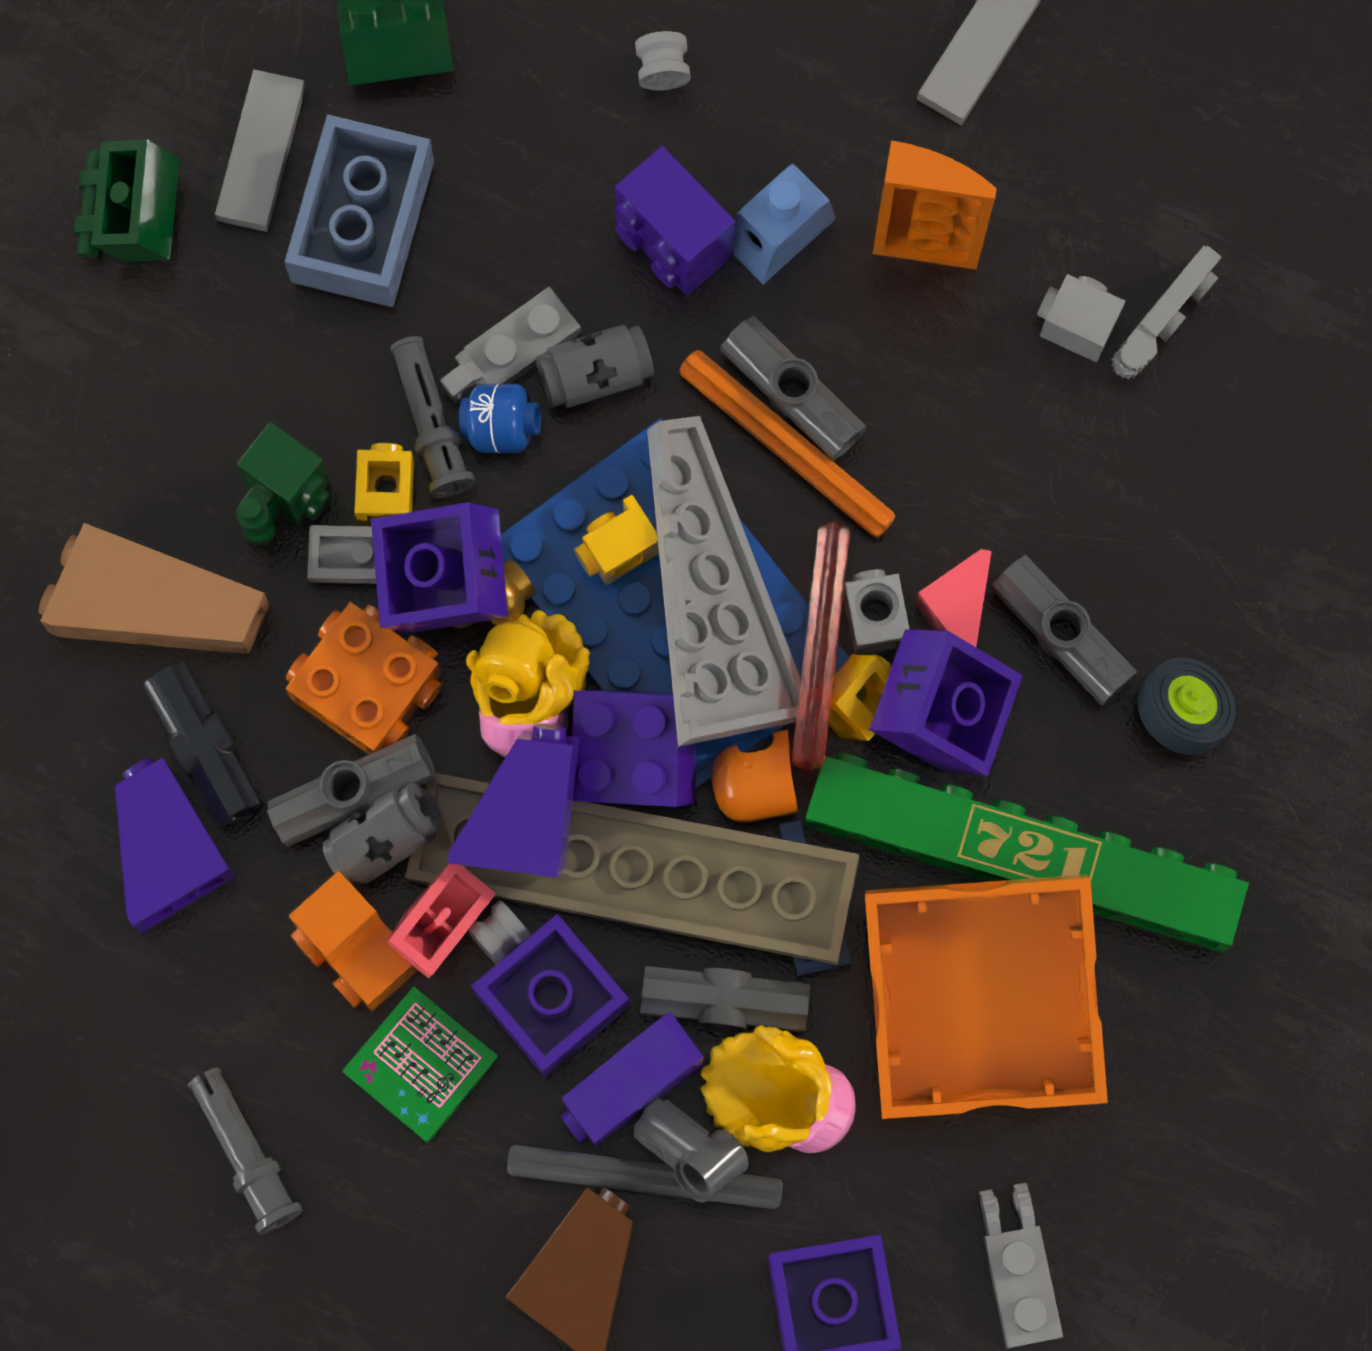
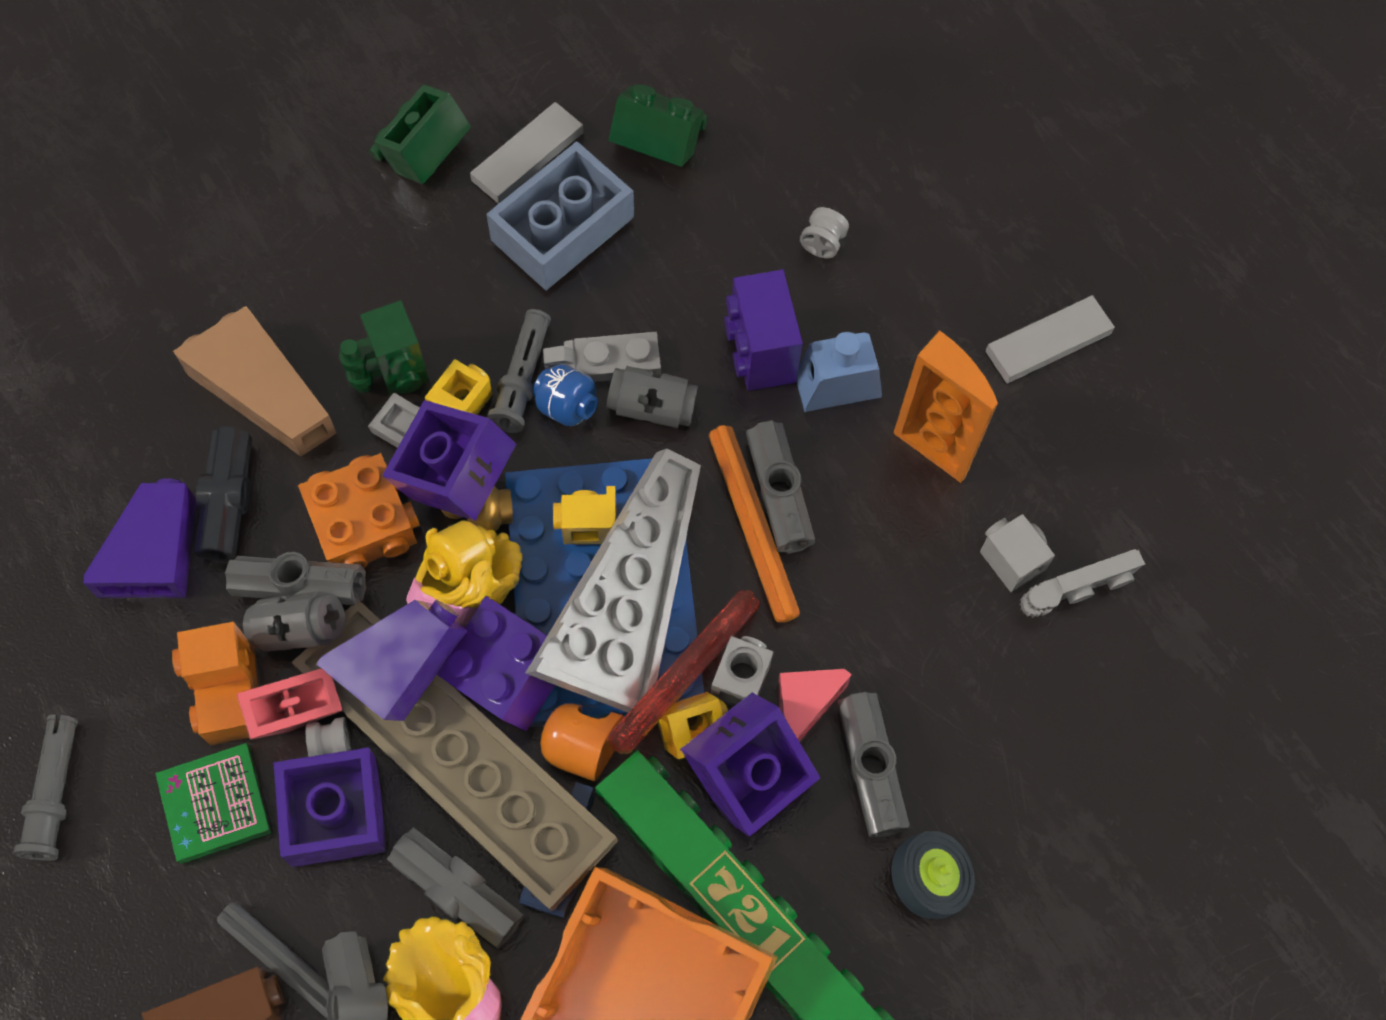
camera: 30 degrees right, 10 degrees down
(631, 1081) = (358, 902): dark purple slope -> none

